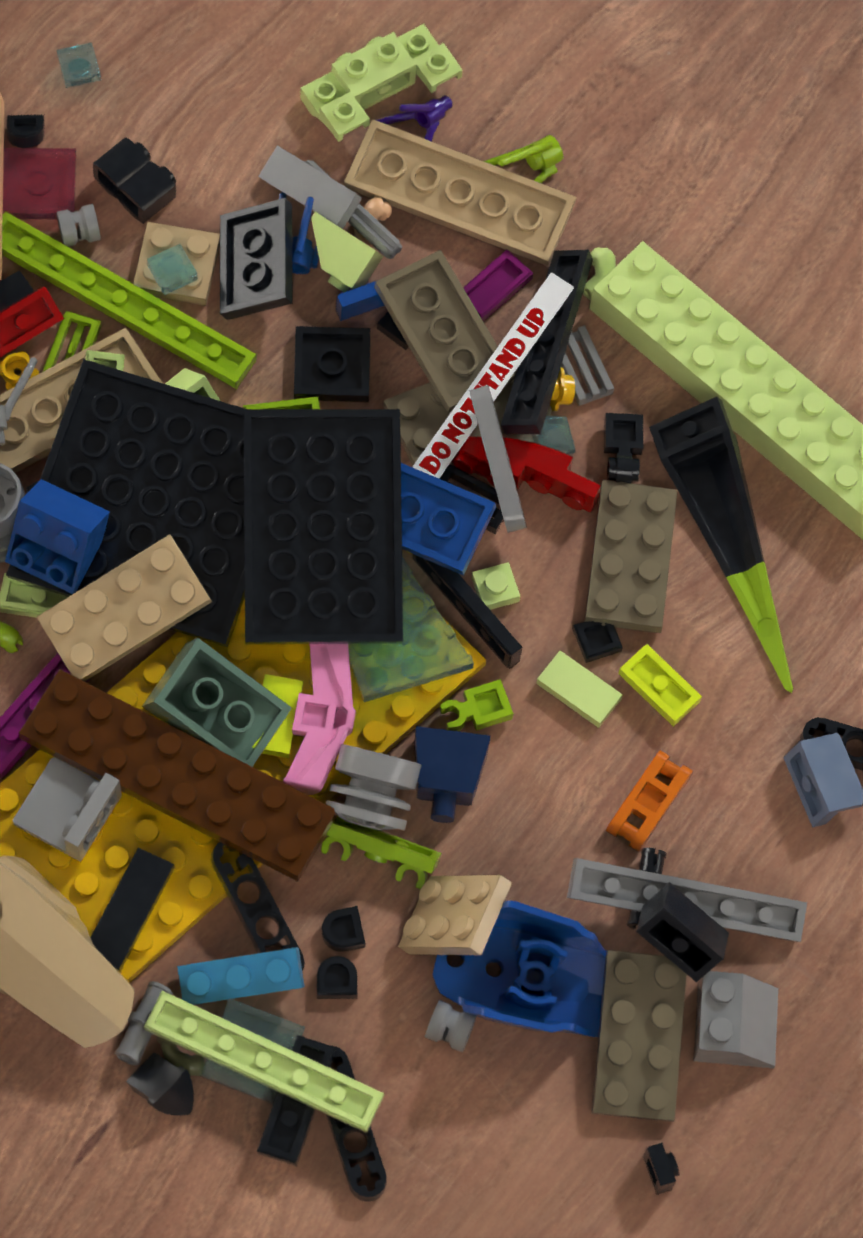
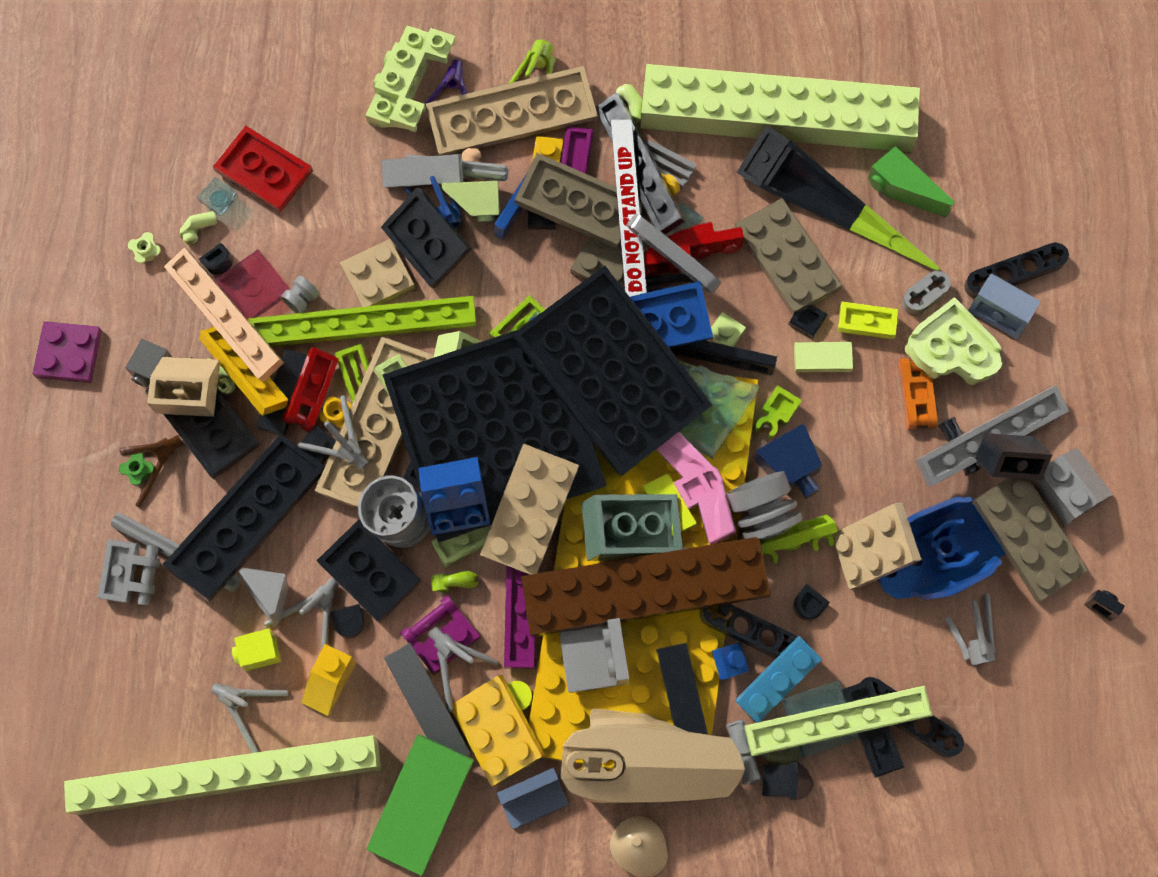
camera: 30 degrees left, 5 degrees up
(29, 77) = (193, 225): none -> yellowish green arm
(134, 179) = (311, 242): black brick -> none
(149, 69) = (263, 168): none -> red plate
(172, 269) = (381, 280): clear light blue plate -> none
(207, 920) = (730, 661): none -> blue plate
(332, 363) = (520, 269): black tile -> none
(337, 979) = (830, 636): black tile -> none
(450, 1026) = (920, 614): light grey wheel -> none
(467, 260) = (548, 147): none -> yellow plate
(483, 1113) = (983, 648): none -> light grey plant
(624, 438) = (727, 189): black plate -> none
(733, 775) = (954, 343): none -> yellowish green plate
(751, 700) = (930, 297): none -> light grey beam
(828, 571) = (903, 181): none -> bright green slope

